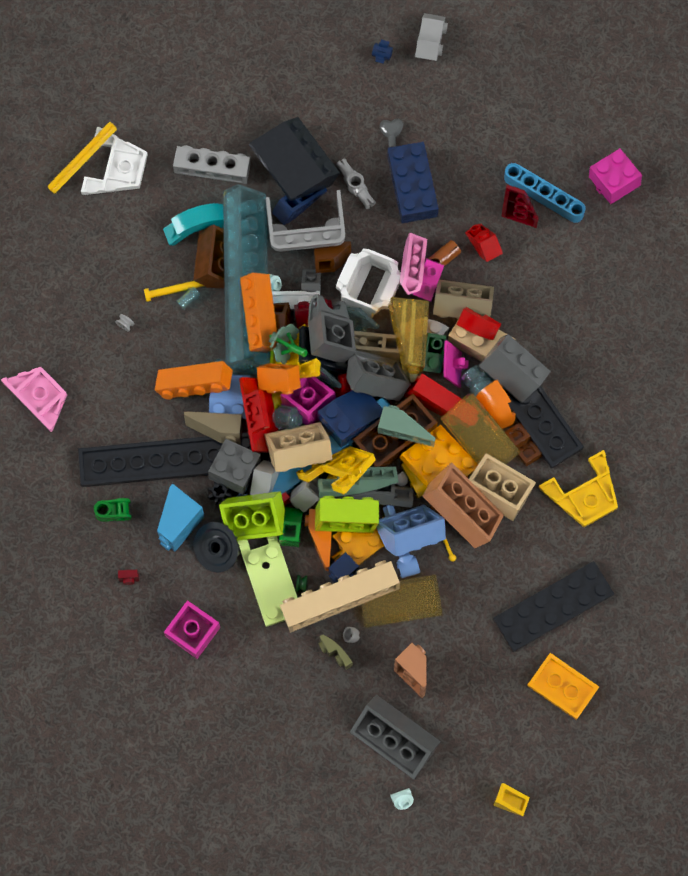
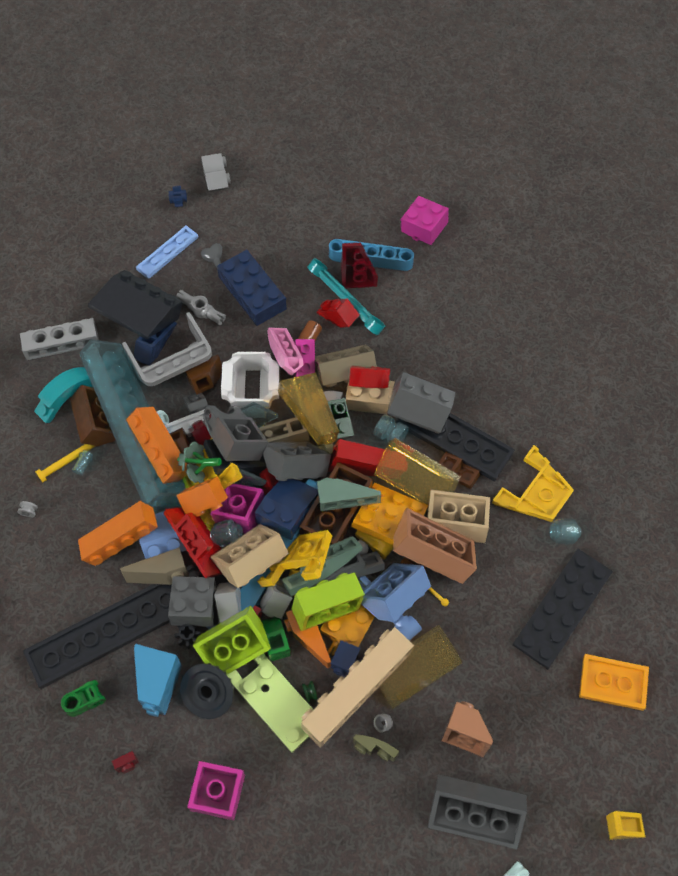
camera: 25 degrees left, 10 degrees down
(348, 109) = (167, 252): none -> light blue tile
(453, 364) = (362, 422): dark pink piece -> none
(496, 403) = (421, 439): orange brick -> none
(512, 267) = (371, 322): none -> teal piece
(589, 540) = (565, 531): none -> clear light blue head

